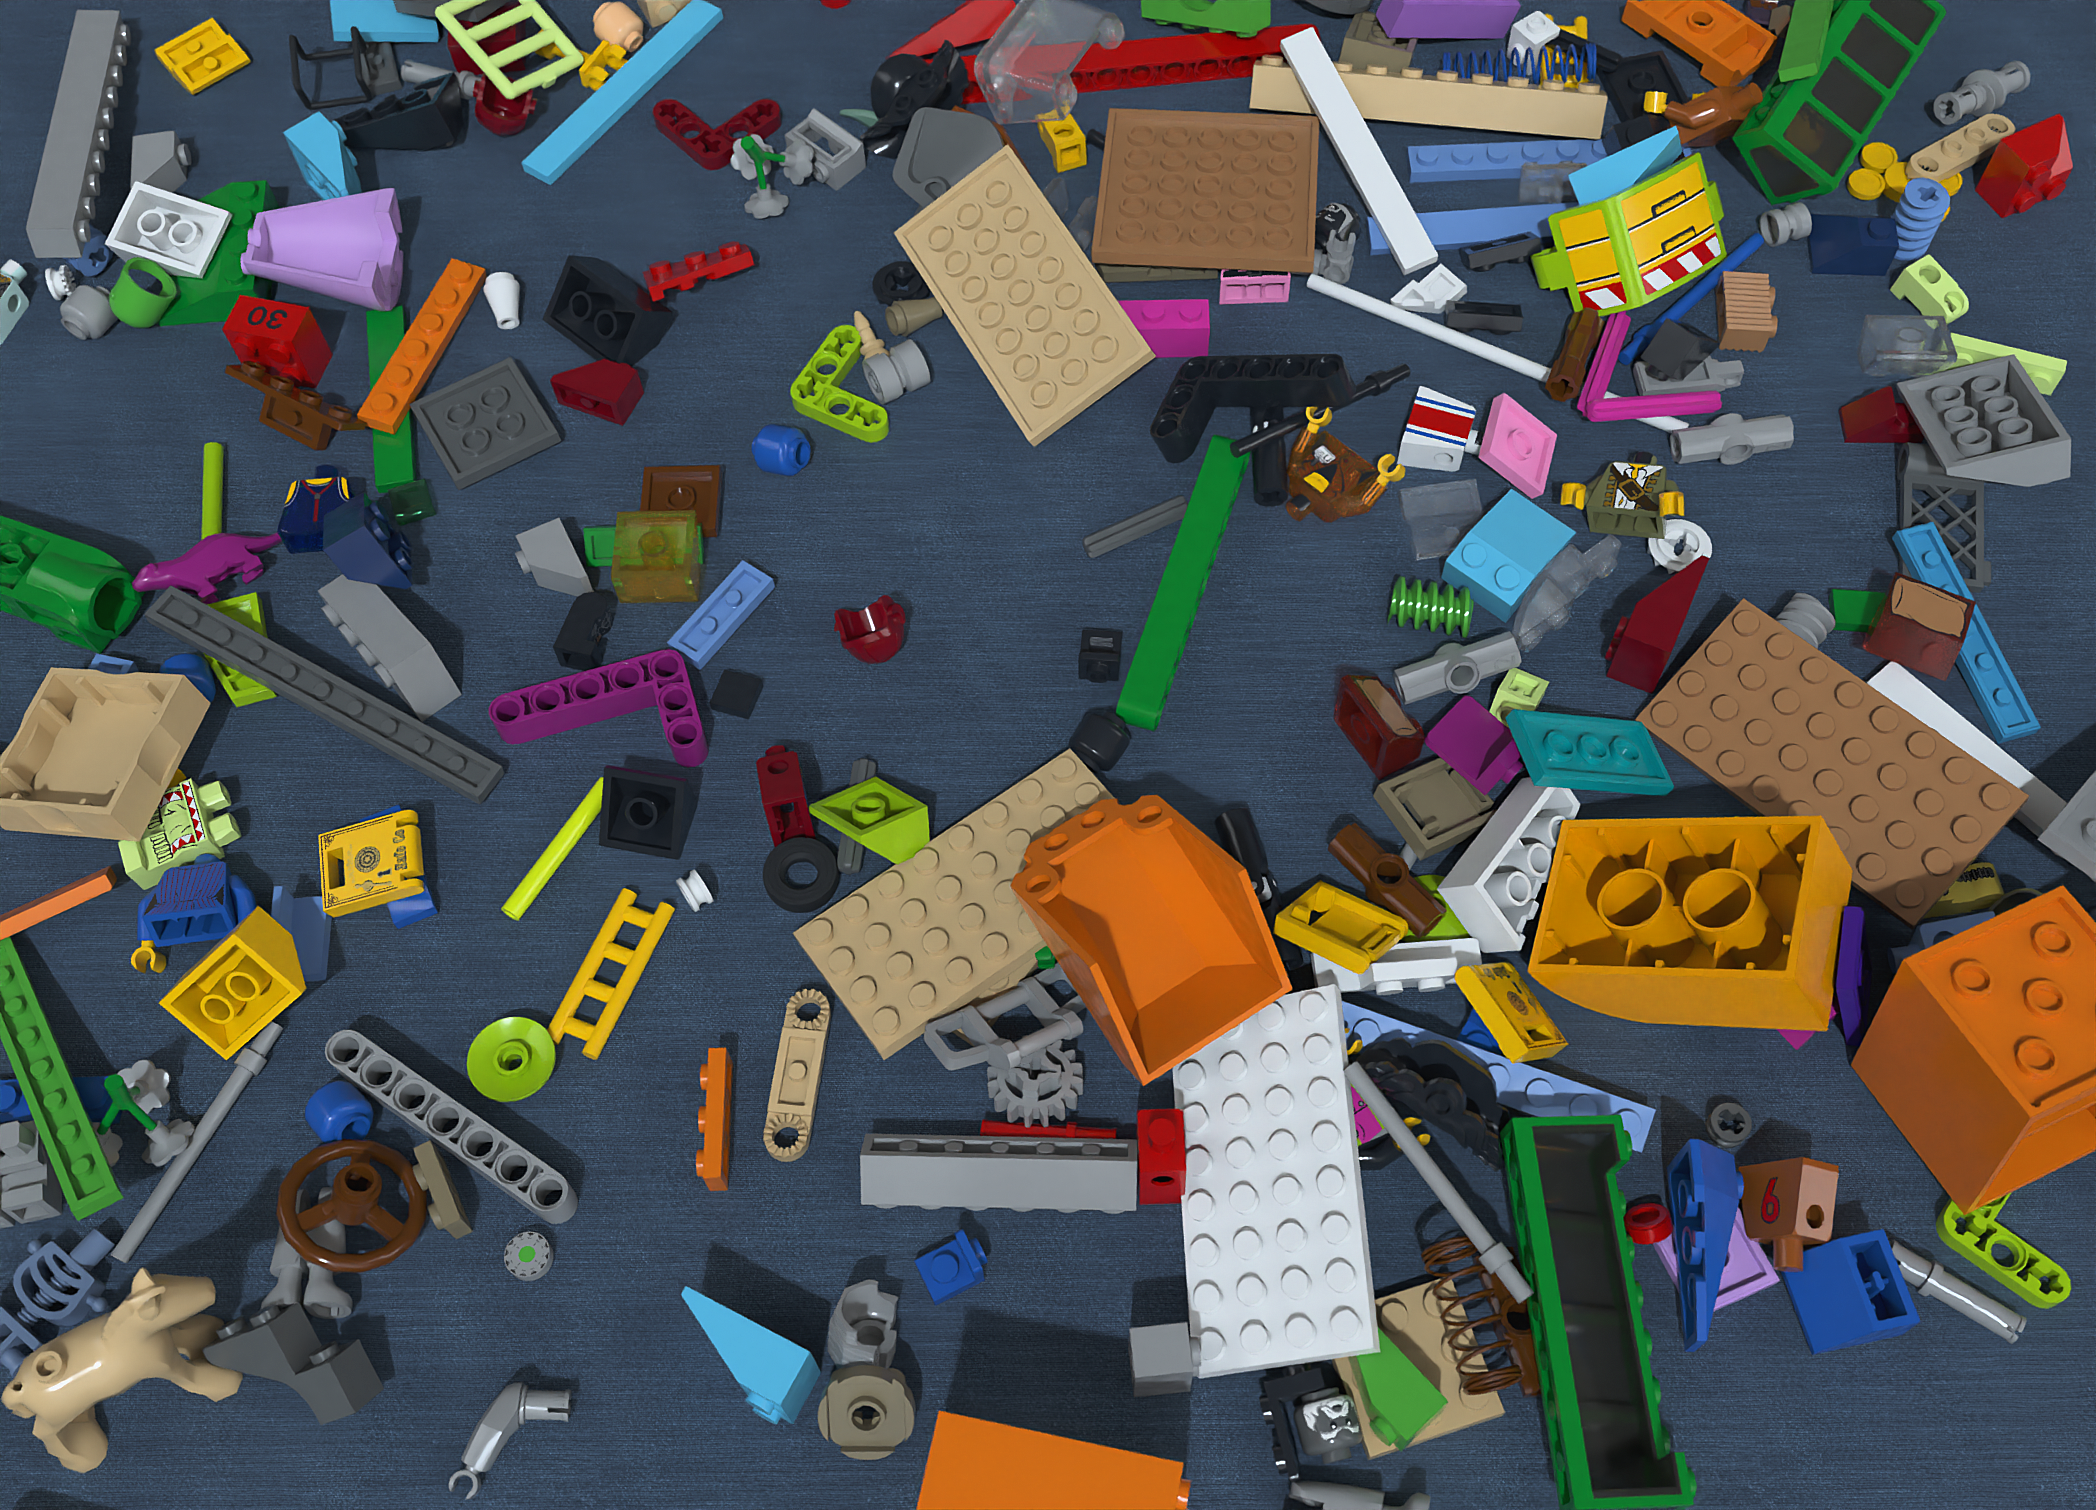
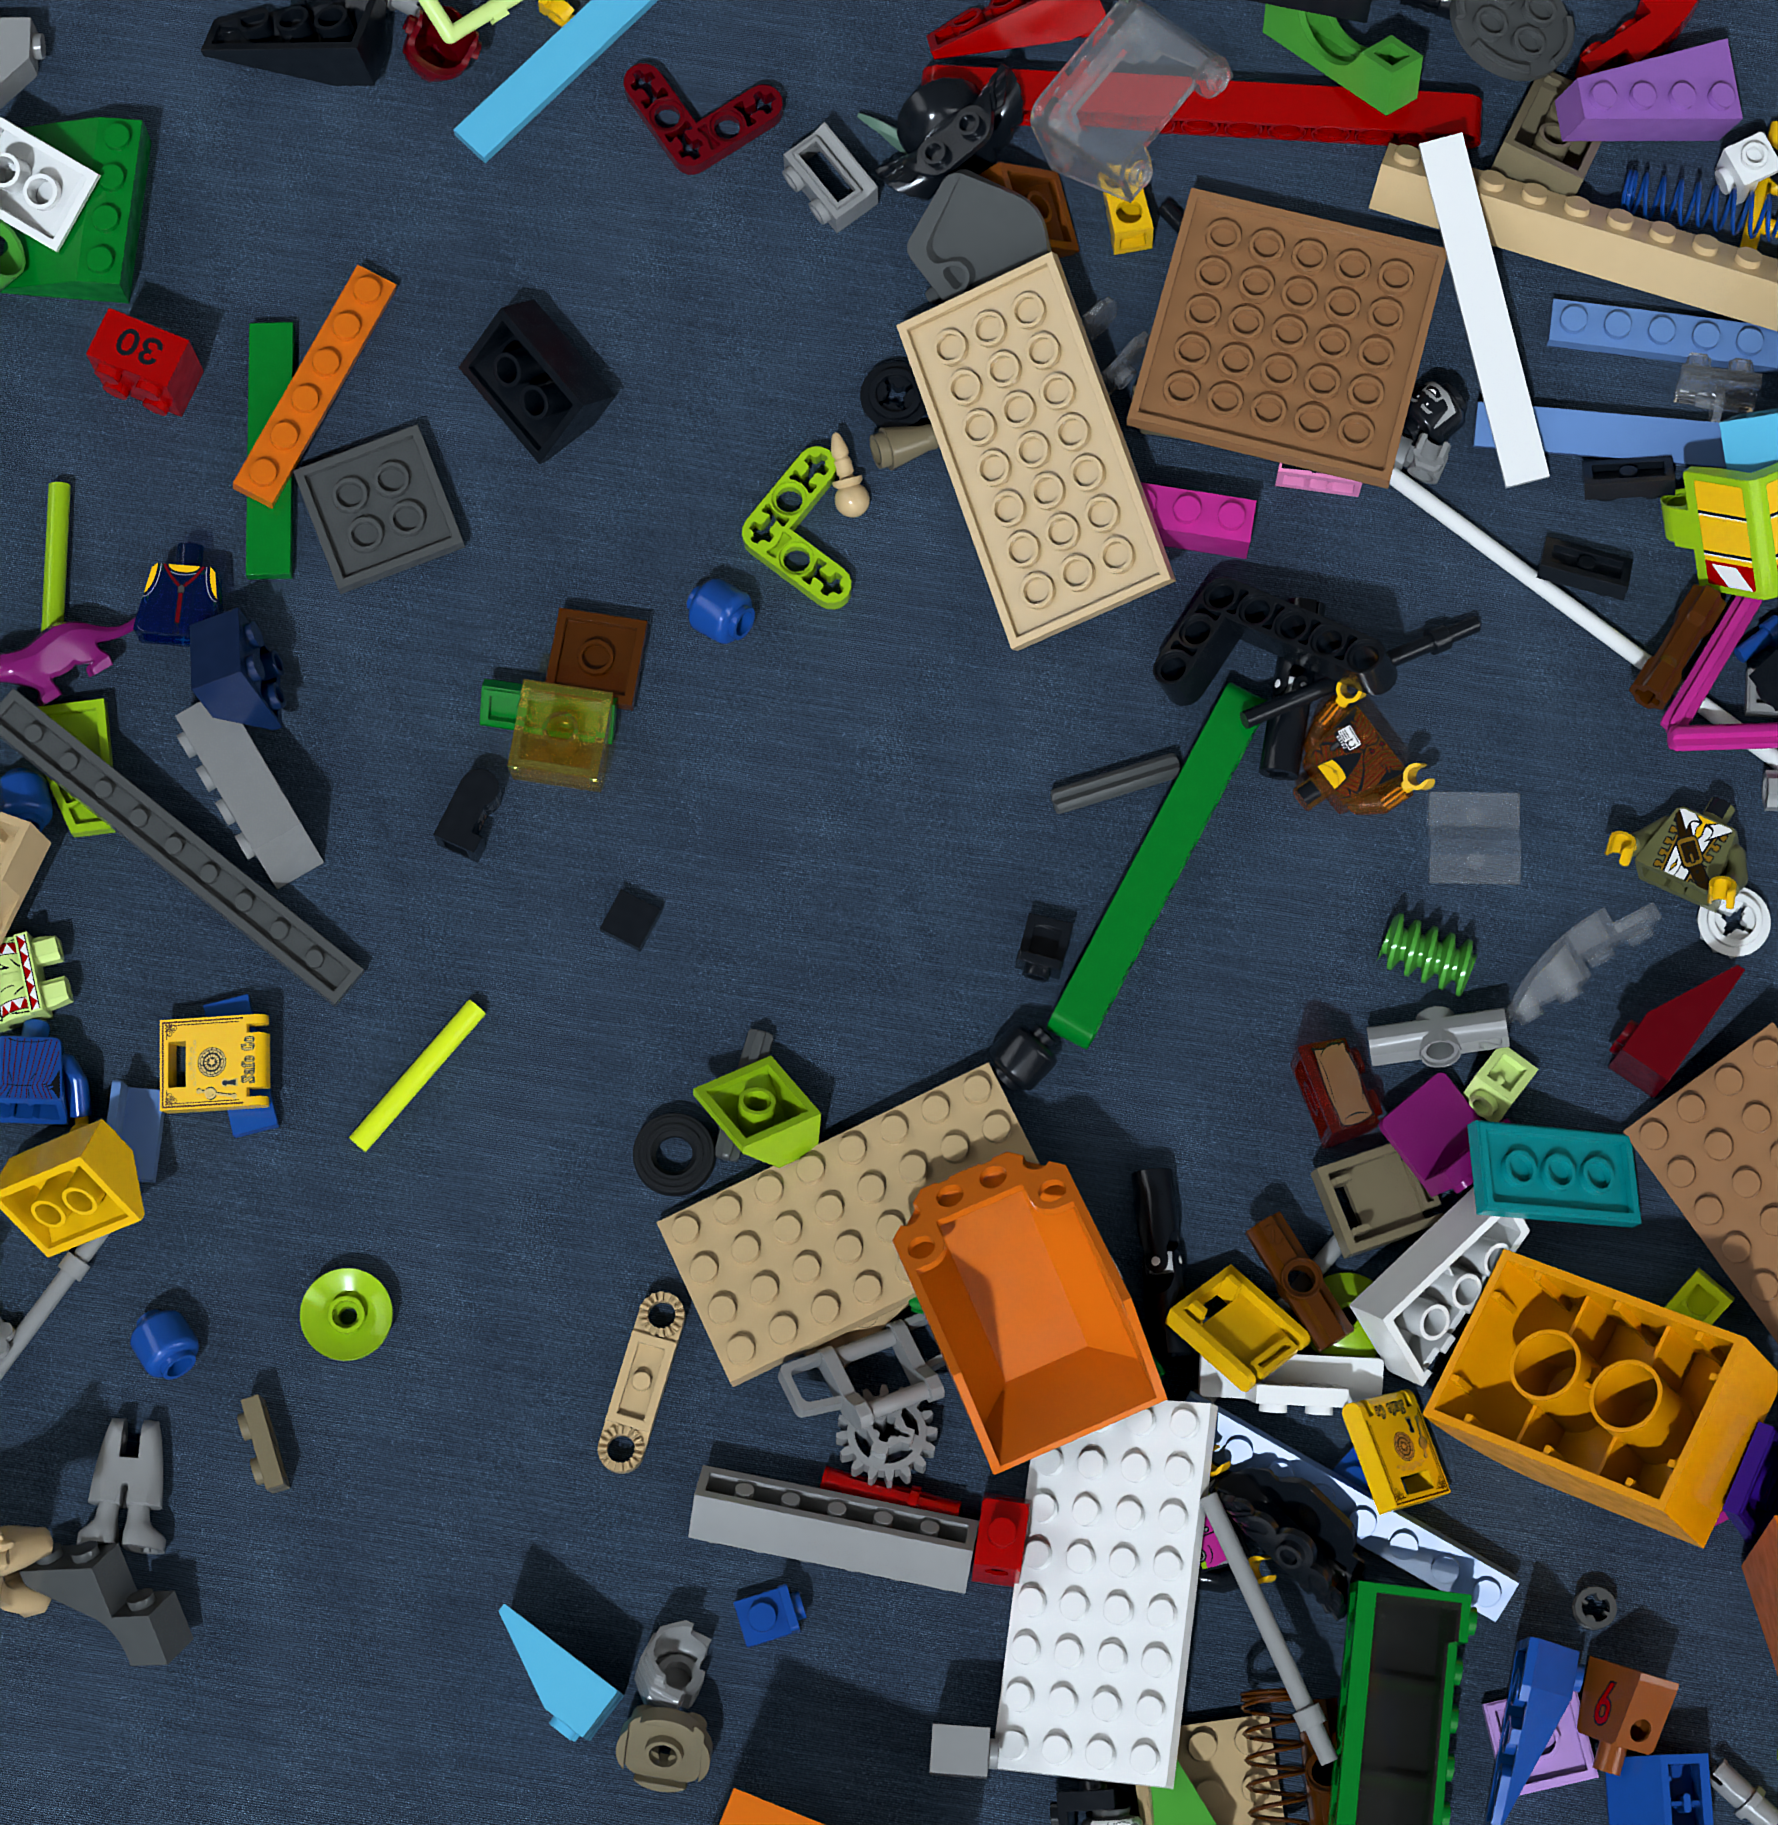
camera: 10 degrees right, 15 degrees up
(295, 411) = (158, 457): reddish brown bracket -> none
(324, 157) = (216, 101): medium azure slope -> none
(332, 248) = (217, 245): lavender cone -> none
(351, 1203) = (165, 1449): reddish brown piece -> none
(411, 502) = (285, 600): clear green tile -> none
(464, 1139) = (259, 1363): light grey beam -> none
(501, 1420) = (307, 1691): light grey arm -> none
(503, 296) = (415, 334): white cone -> none
(528, 1256) = (345, 1526): light grey tile -> none
(552, 559) = (442, 713): light grey slope -> none
(600, 389) = (520, 488): dark red slope -> none
(612, 700) = (490, 908): magenta beam -> none
(616, 997) = (454, 1202): yellow bar -> none
(645, 812) = (514, 1056): black slope -> none
(685, 273) = (640, 336): red wing -> none
(694, 890) = (557, 1155): white bush -> none
(715, 1119) = (550, 1417): orange plate -> none
(721, 614) = (625, 817): medium blue plate -> none
(754, 159) = (740, 178): light grey plant -> none
(780, 784) = (668, 1062): dark red torso -> none
(874, 632) = (791, 874): dark red cap -> none
(901, 369) = (870, 527): light grey wheel -> none
(1431, 292) = (1533, 519): white slope -> none
(1439, 432) = (1494, 724): white torso -> none
(1506, 554) = (1533, 900): medium azure slope -> none
(1518, 446) = (1578, 762): bright pink plate -> none
(1648, 1223) = (1481, 1697): red tile -> none

